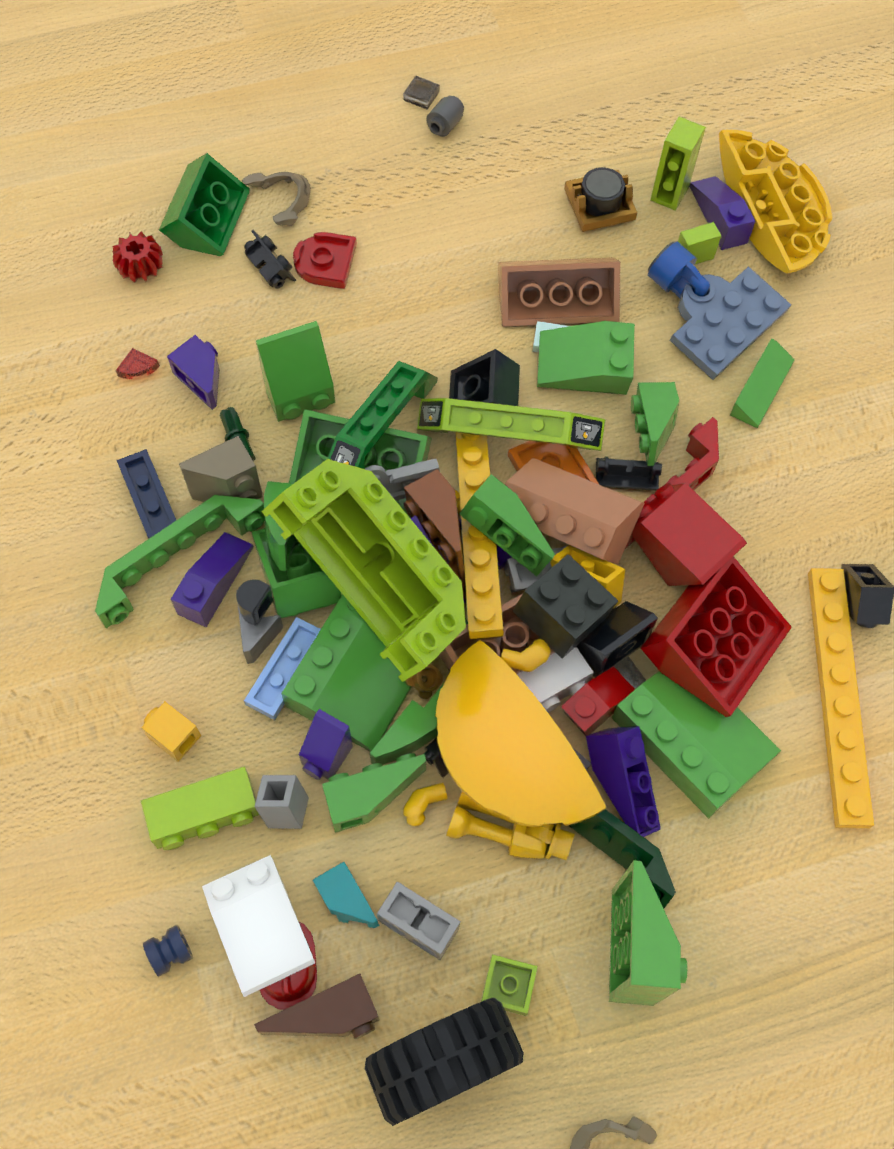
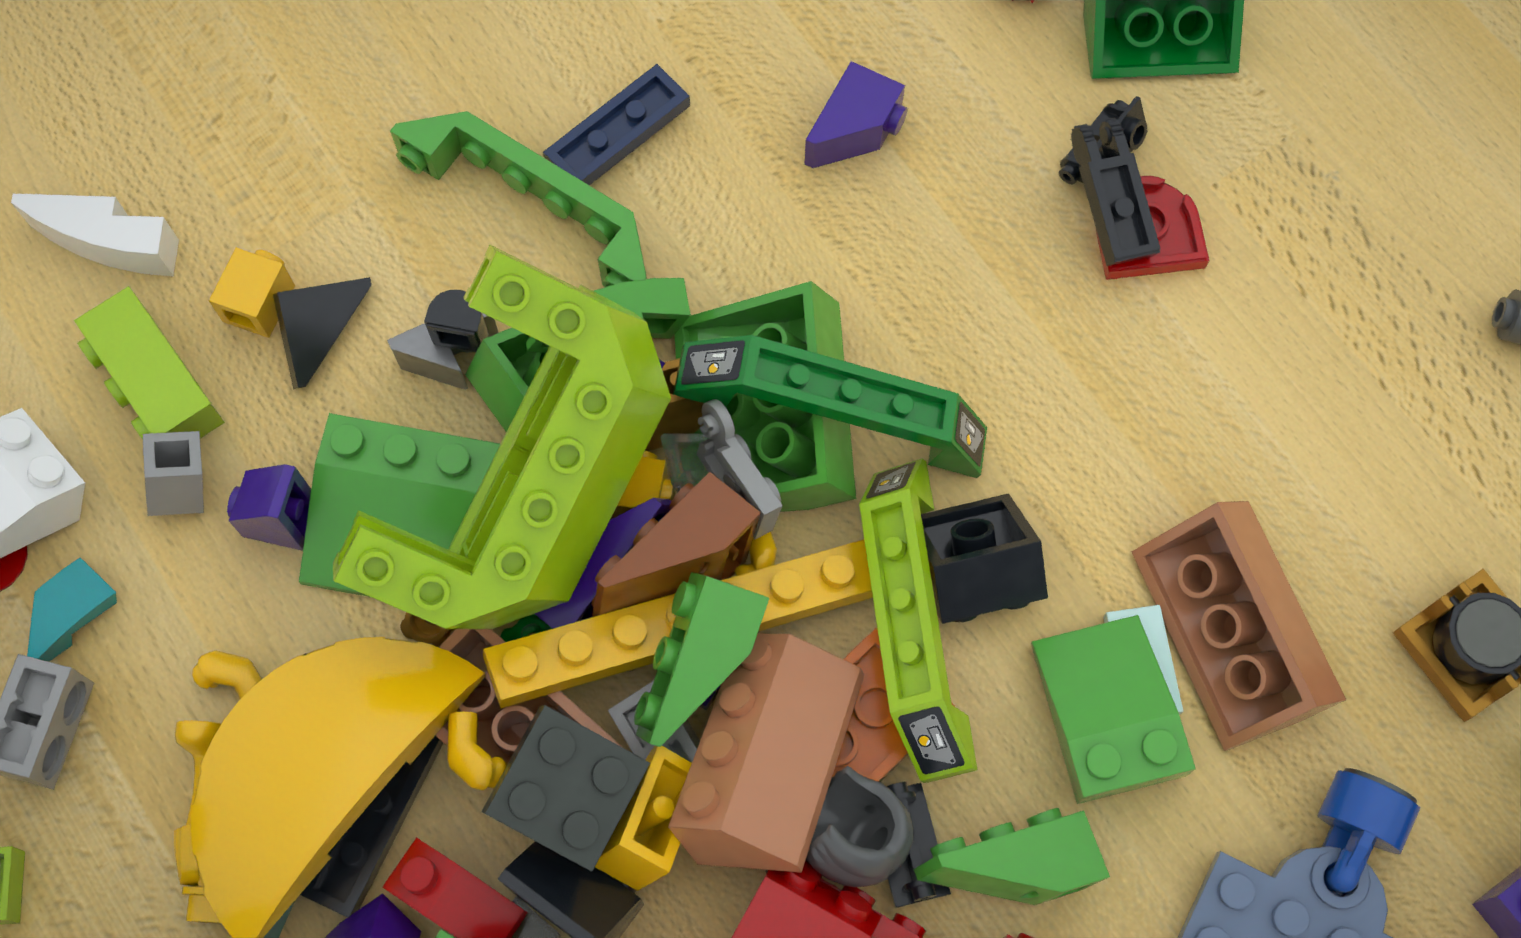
camera: 75 degrees right, 5 degrees up
(85, 820) = (102, 231): none -> white slope
(136, 364) = (838, 32): clear red tile -> none
(207, 701) = (312, 322): none -> black tile
(210, 579) = (462, 241): dark purple slope -> none
(222, 471) = (674, 215): dark tan slope -> none
(234, 428) = (759, 212): dark green axle -> none
(266, 692) = (392, 405): light blue plate -> none
(288, 216) = (1277, 143): dark tan helmet -> none
(296, 371) = (880, 249): bright green slope -> none
(304, 257) = (1115, 194): none -> black hinge
(362, 796) = (212, 583): bright green slope -> none
(408, 733) = (326, 613): bright green slope -> none
(558, 678) = (456, 810): white brick -> none
(626, 474) = (860, 832): none -> dark grey piece
(701, 241) = (1447, 850): lime piece -> none

